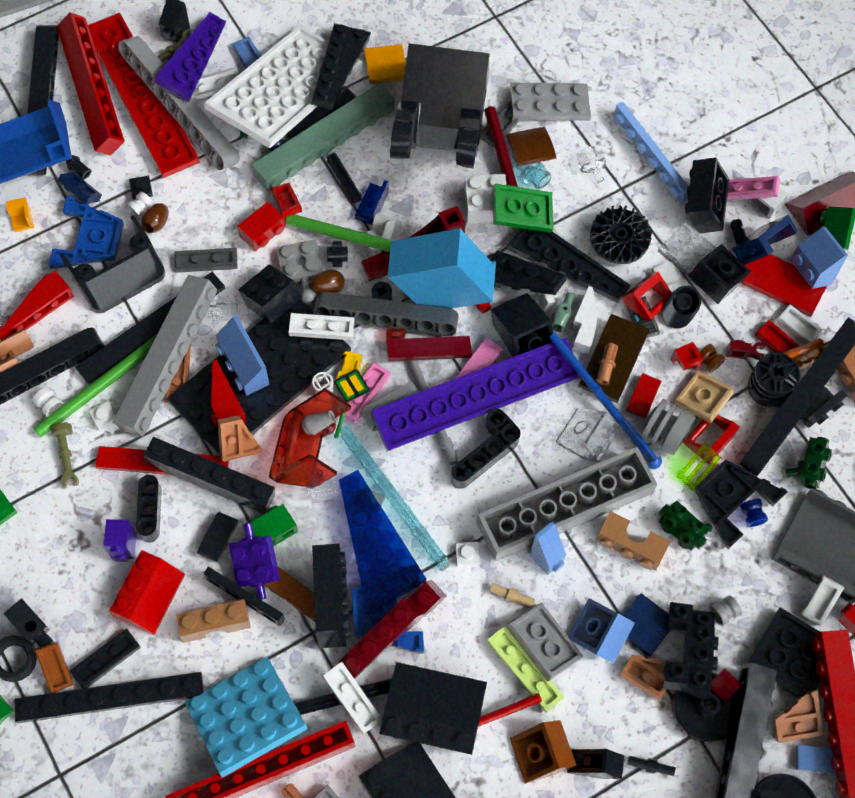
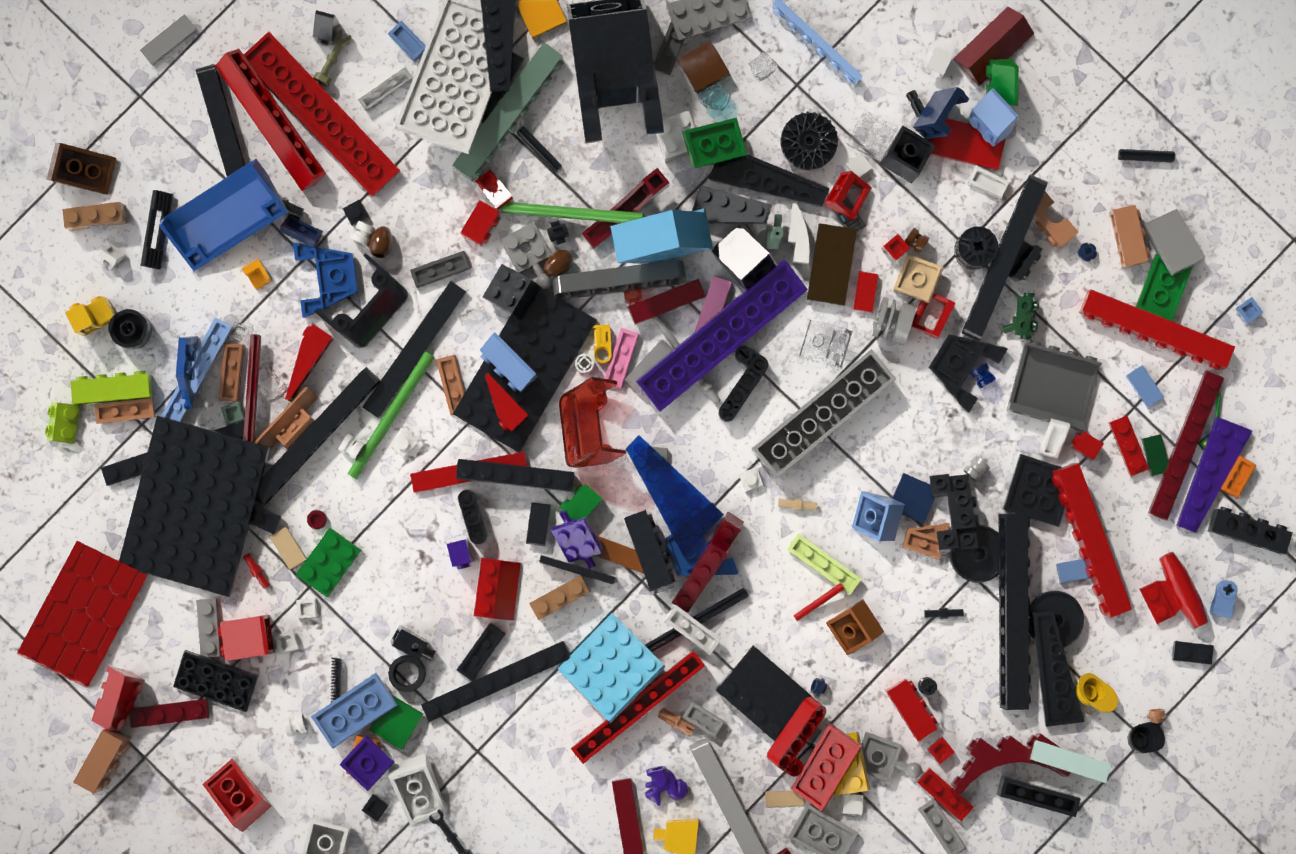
camera: 15 degrees left, 20 degrees up
(54, 667) = (443, 671): dark orange tile -> none
(60, 431) = (382, 487): olive piece -> none
(165, 356) = (439, 376): light grey brick -> none
(186, 113) = (361, 118): light grey beam -> none
(189, 62) = (358, 78): dark purple wing -> none
(235, 439) = (527, 438): nougat wing -> none
(317, 422) = (589, 402): light grey cone -> none
(321, 326) = (567, 311): white plate -> none
(350, 387) = (609, 358): piece -> none
(372, 202) = (572, 168): clear blue panel -> none
(383, 226) = (590, 194): white panel -> none
(383, 287) = (611, 261): black wheel -> none
(394, 498) = (675, 448): clear light blue tile -> none
(433, 708) = (759, 619): black slope -> none
(500, 145) = (678, 82): dark red axle -> none
(544, 642) = (834, 537): light grey tile -> none
(548, 549) = (819, 462): medium blue slope -> none
(597, 763) = (901, 624): black slope -> none
(607, 363) = (827, 275): nougat axle -> none
(614, 536) = (869, 428): medium nougat arch -> none
(655, 462) = (889, 352): blue bar -> none
(681, 307) = (880, 197): black cap -> none
(684, 526) = (927, 405): dark green brick -> none
(686, 481) = (920, 361): clear neon green tile -> none
(707, 195) = (879, 79): black brick -> none
(725, 685) = (988, 535): dark red tile -> none
(742, 350) = (940, 223): dark red plate -> none
(753, 188) = (915, 58): bright pink tile -> none
(775, 338) = (972, 203): red tile -> none
(799, 719) = (1054, 544): nougat wing -> none
(806, 354) = (998, 214): orange plate -> none

